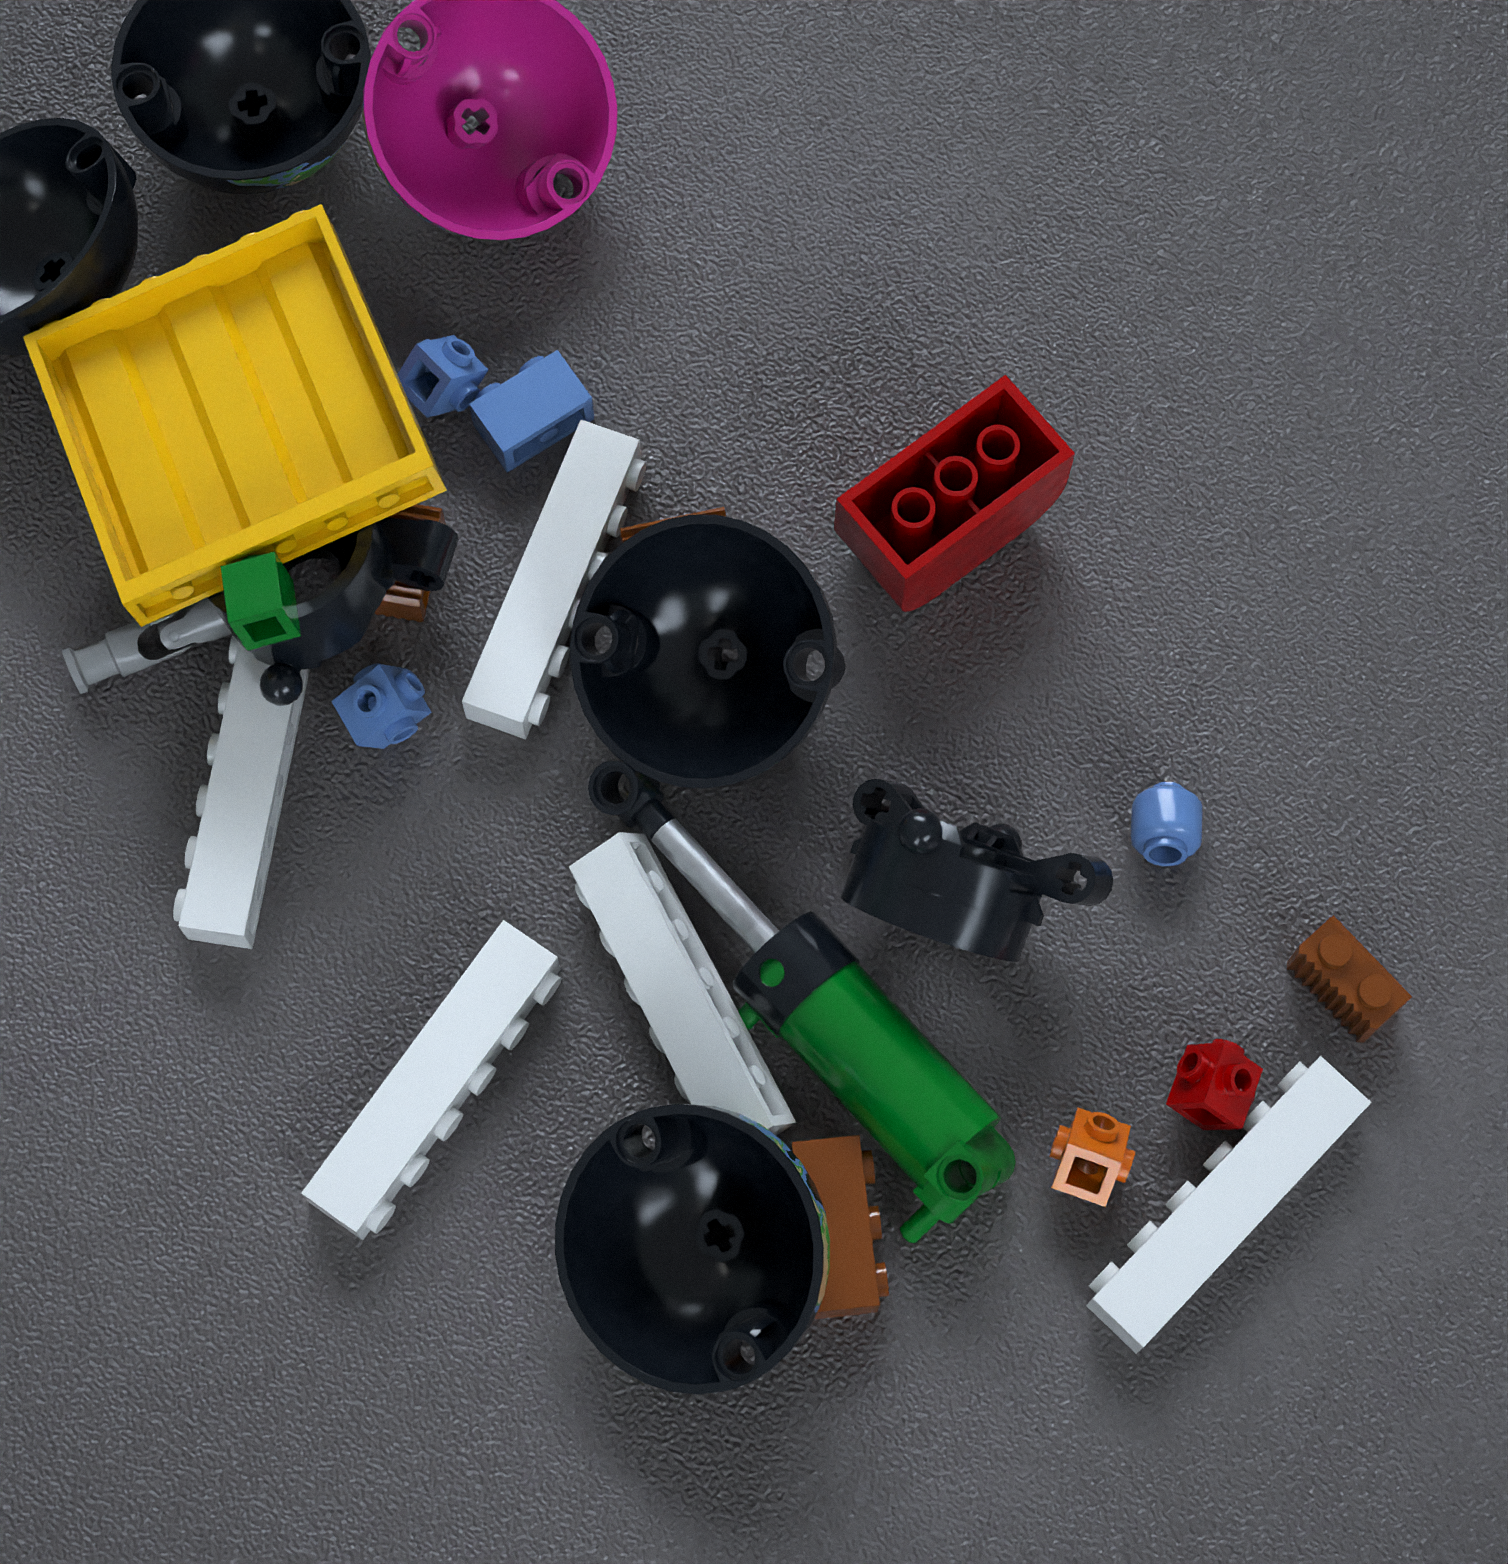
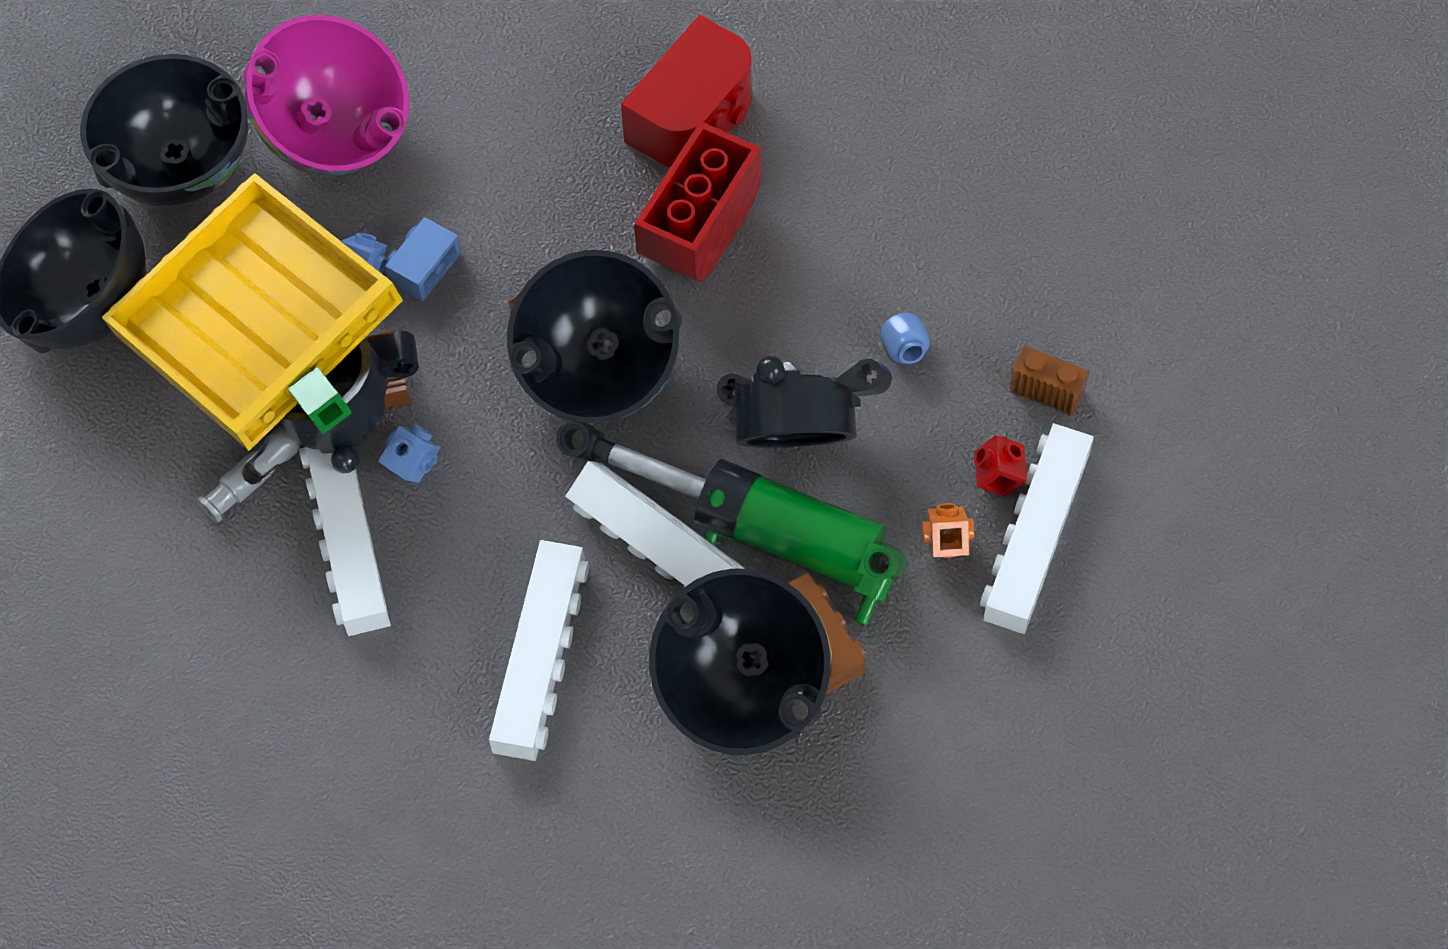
camera: 20 degrees left, 10 degrees down
(551, 578) = (480, 347): white brick -> none
(1025, 309) = (696, 80): none -> red brick

